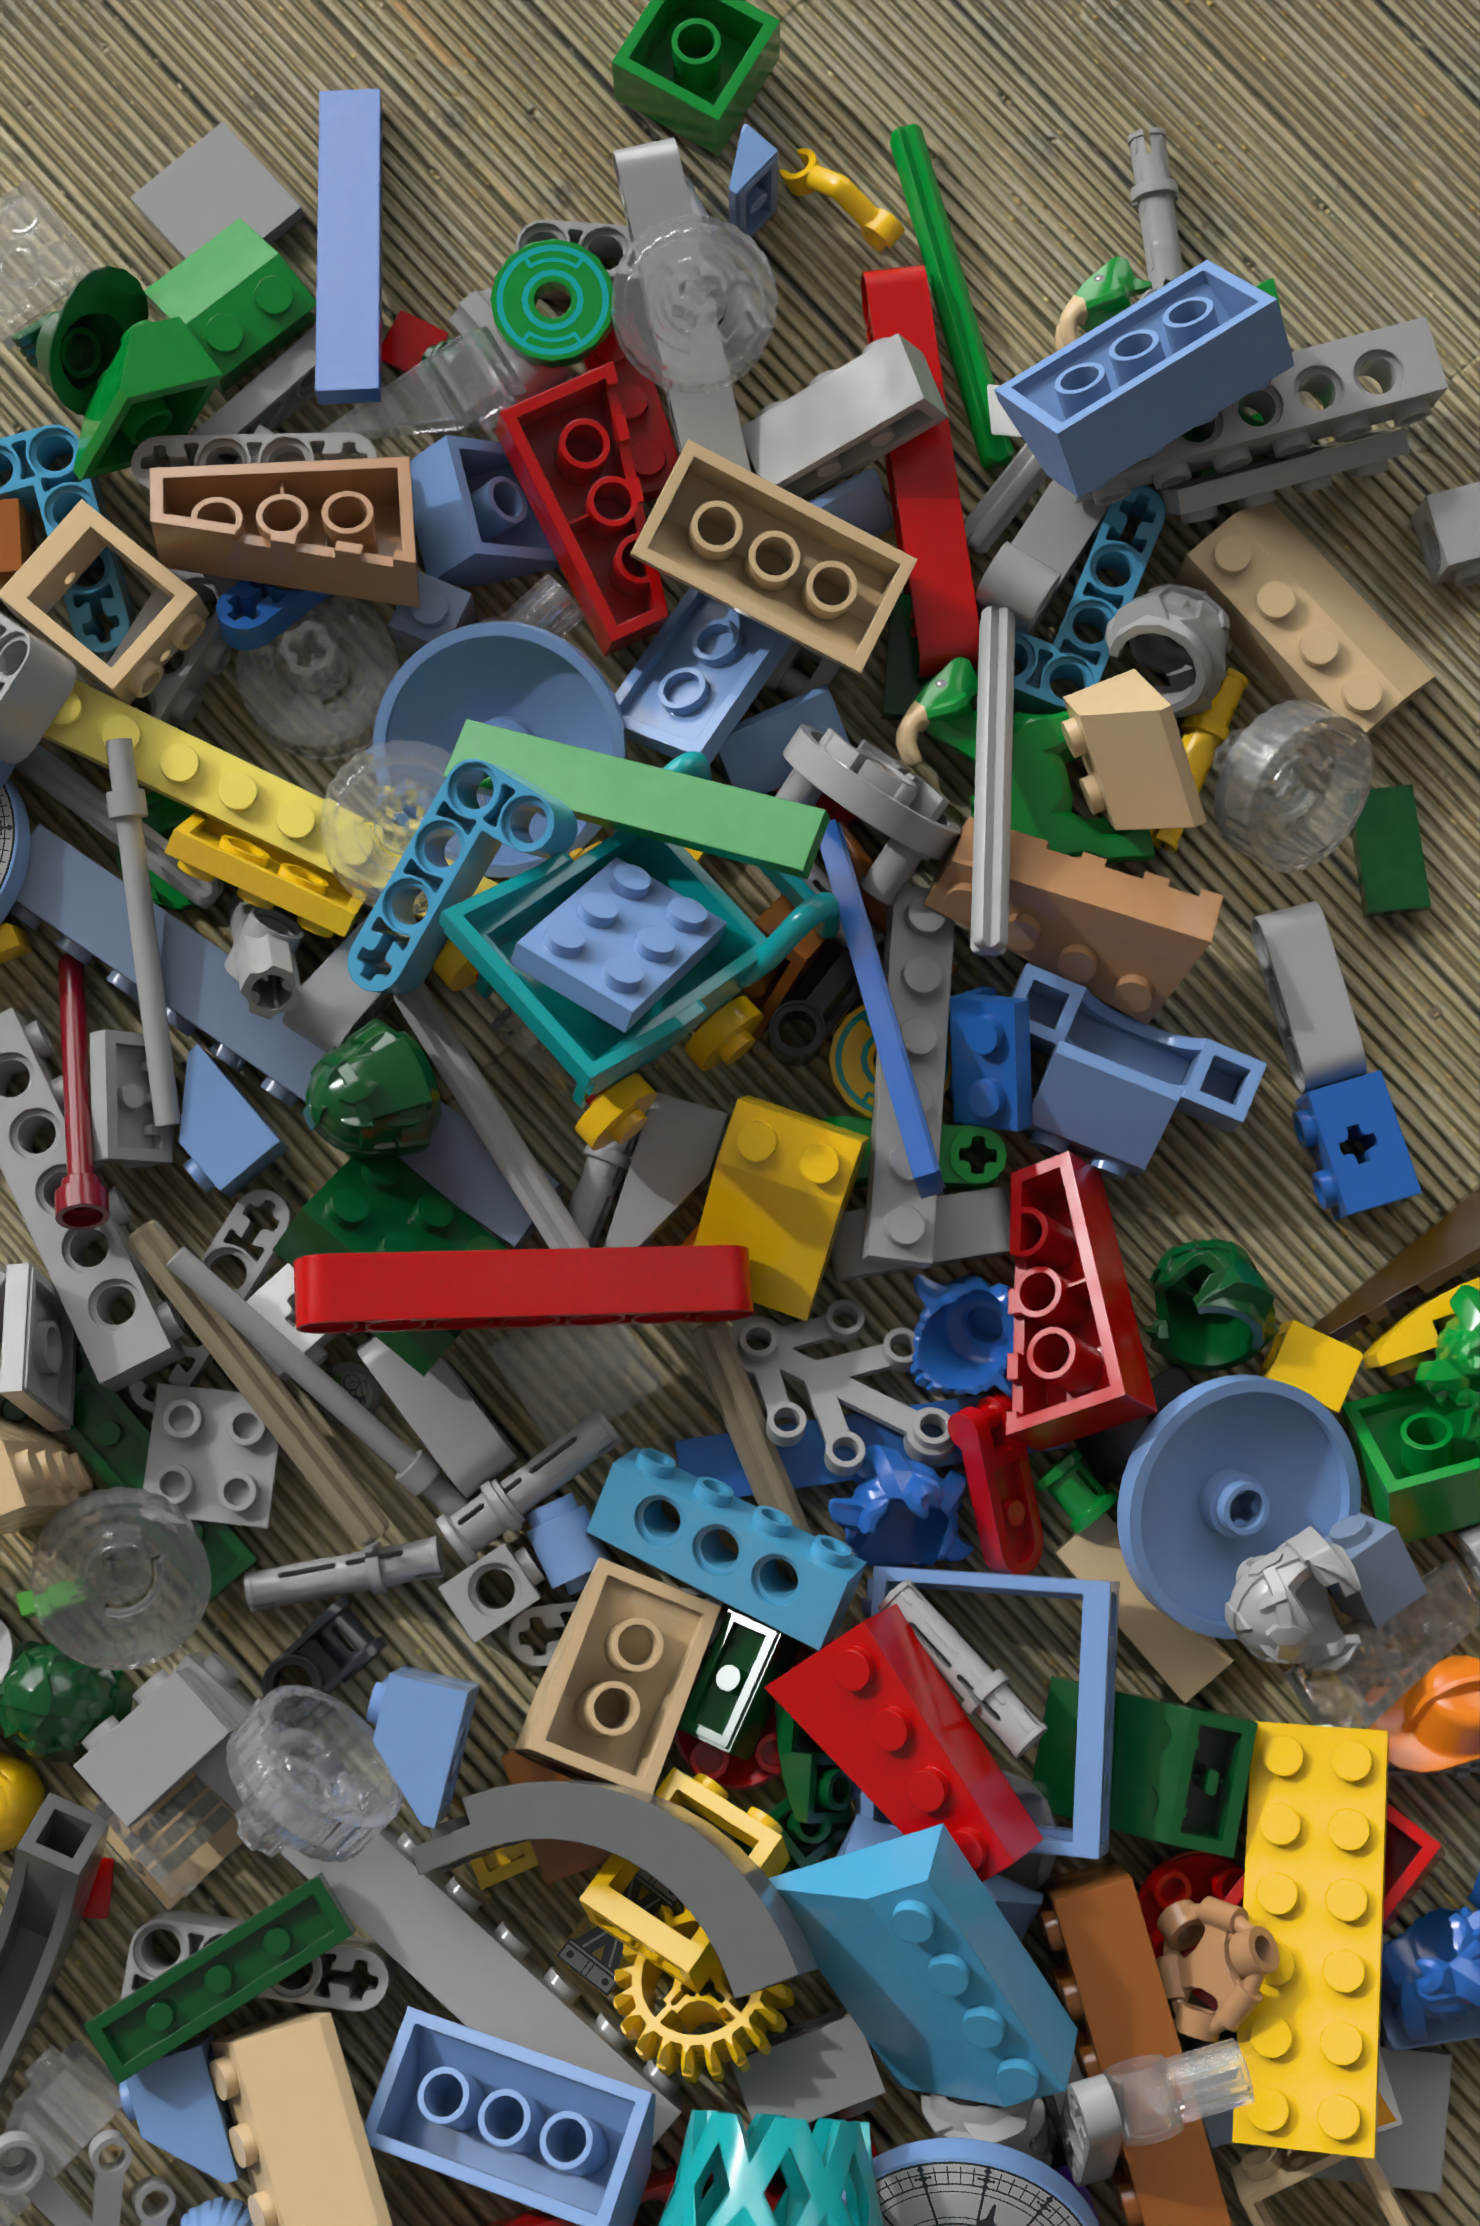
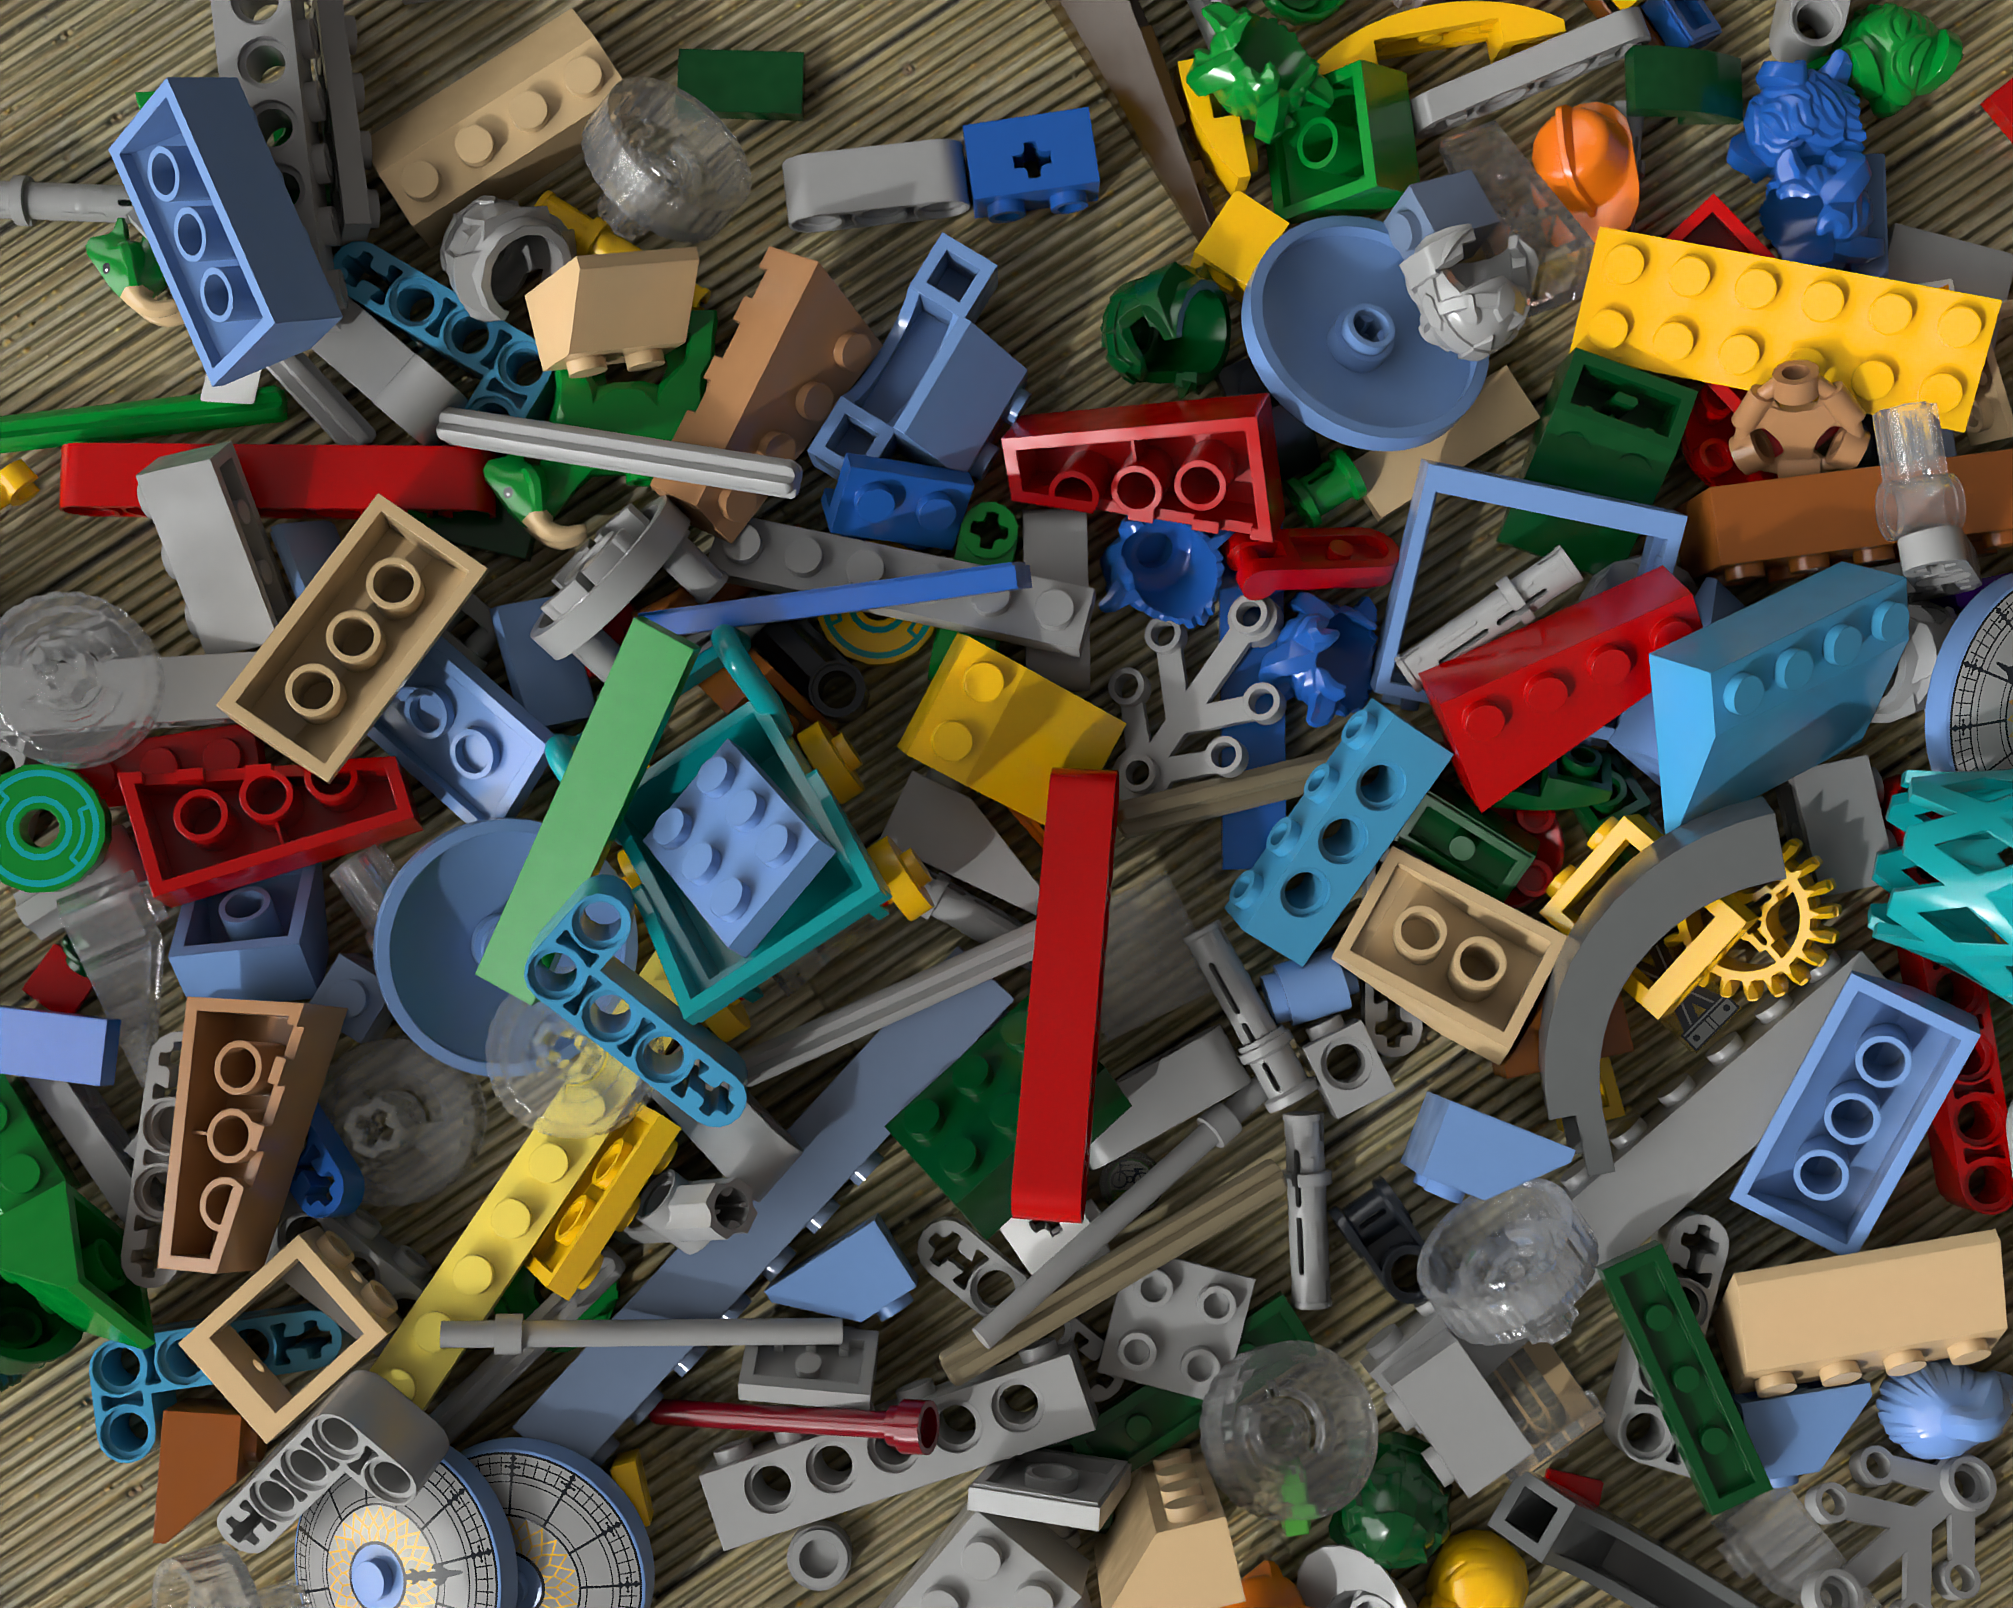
camera: 80 degrees left, 5 degrees up
(374, 1094) = (847, 1117): dark green helmet -> none

